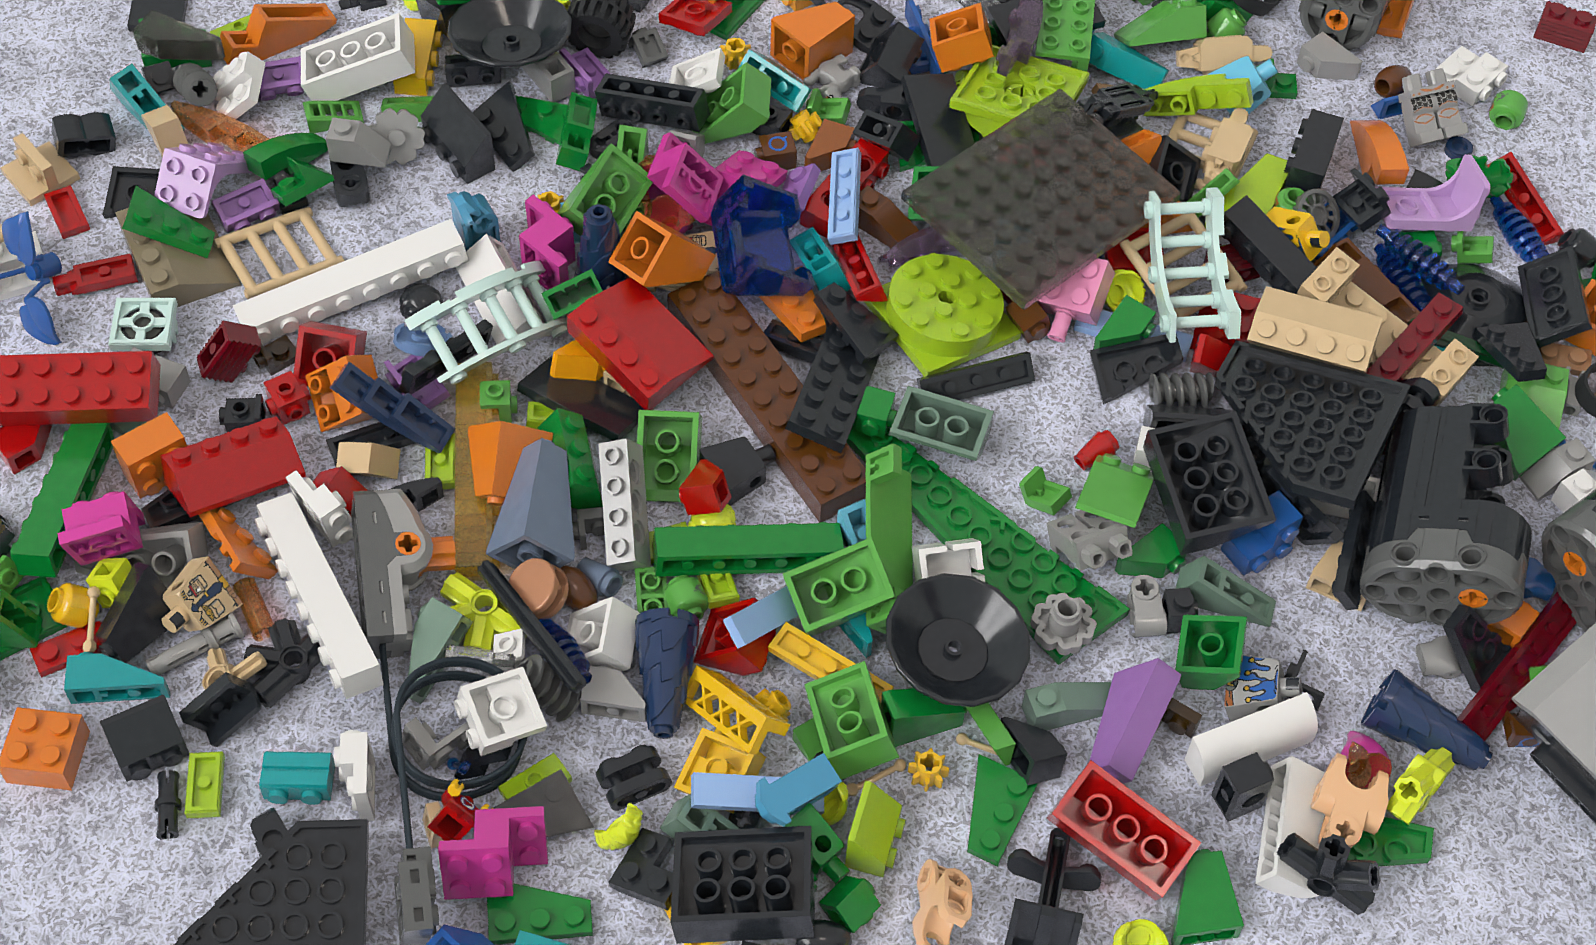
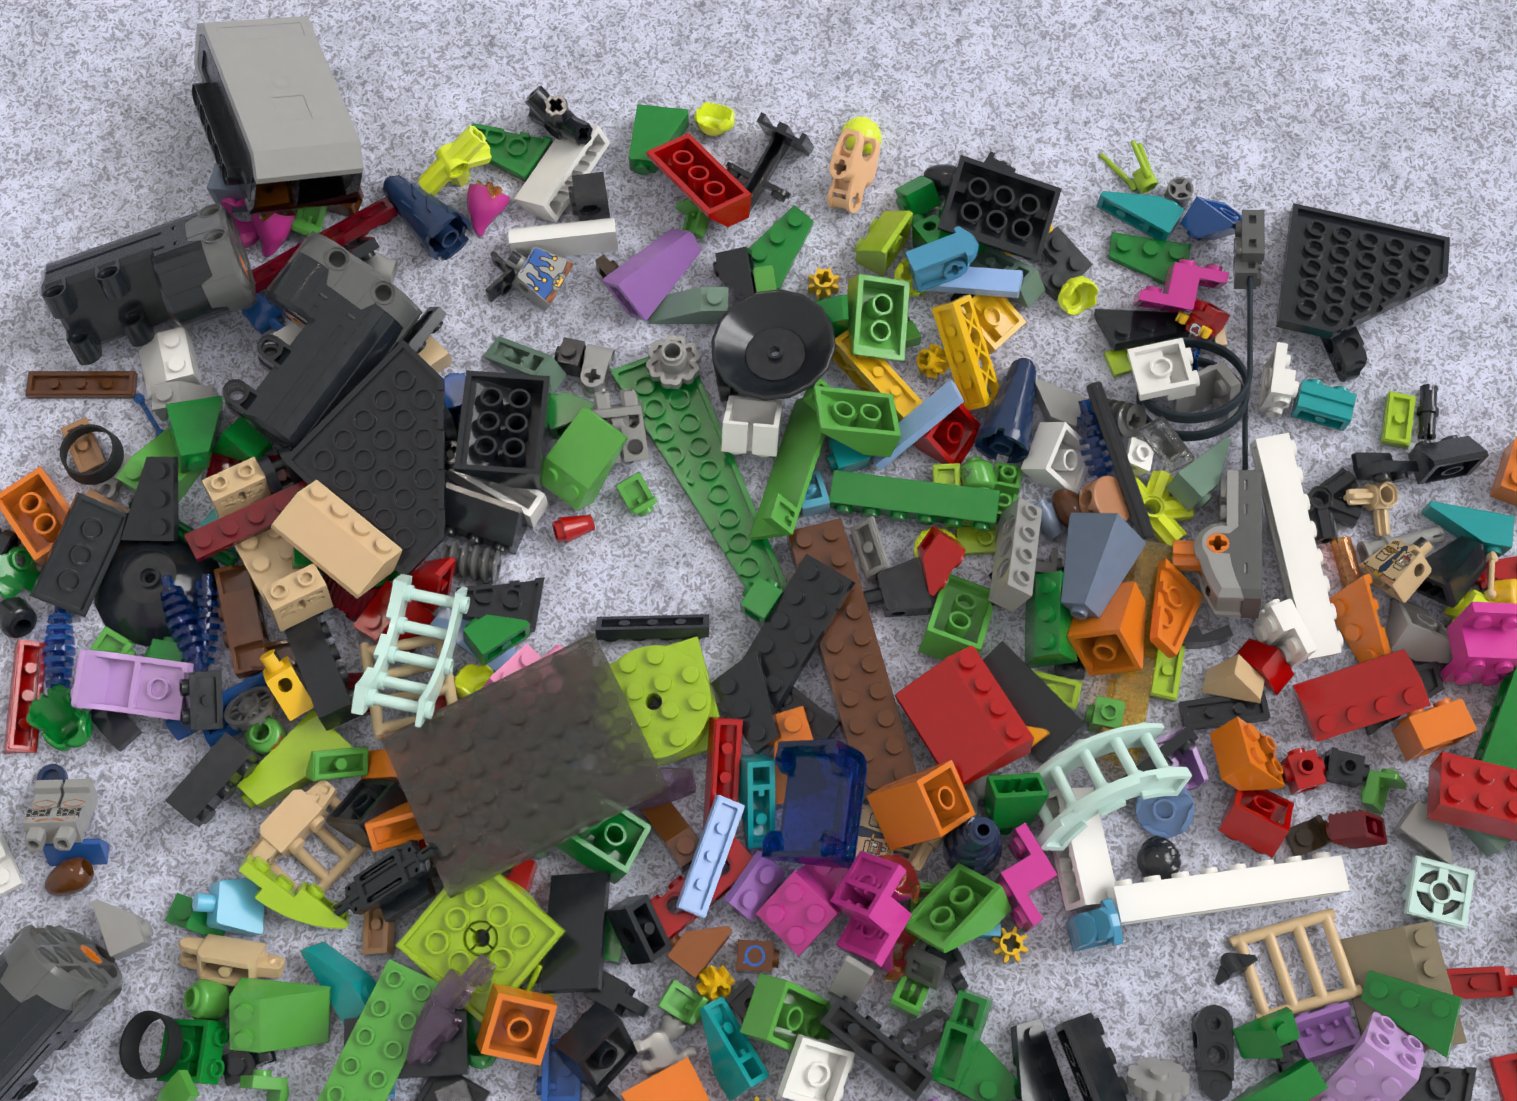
camera: 160 degrees left, 15 degrees up
(207, 406) = (1377, 787): none -> bright green bracket
(336, 239) = (1233, 965): none -> black piece
(356, 144) = (1204, 1061): light grey slope -> none
(393, 409) = (1209, 713): dark blue slope -> none
(444, 494) = (1173, 608): none -> orange wing
(633, 777) = (1048, 347): black brick -> none
(782, 495) = (870, 548): none -> light grey slope
(942, 423) = (706, 572): sand green slope -> none
(1210, 650) = (563, 305): green slope -> none
(1349, 808) = (519, 158): light nougat piece -> none
(1379, 152) = (140, 781): orange slope -> none

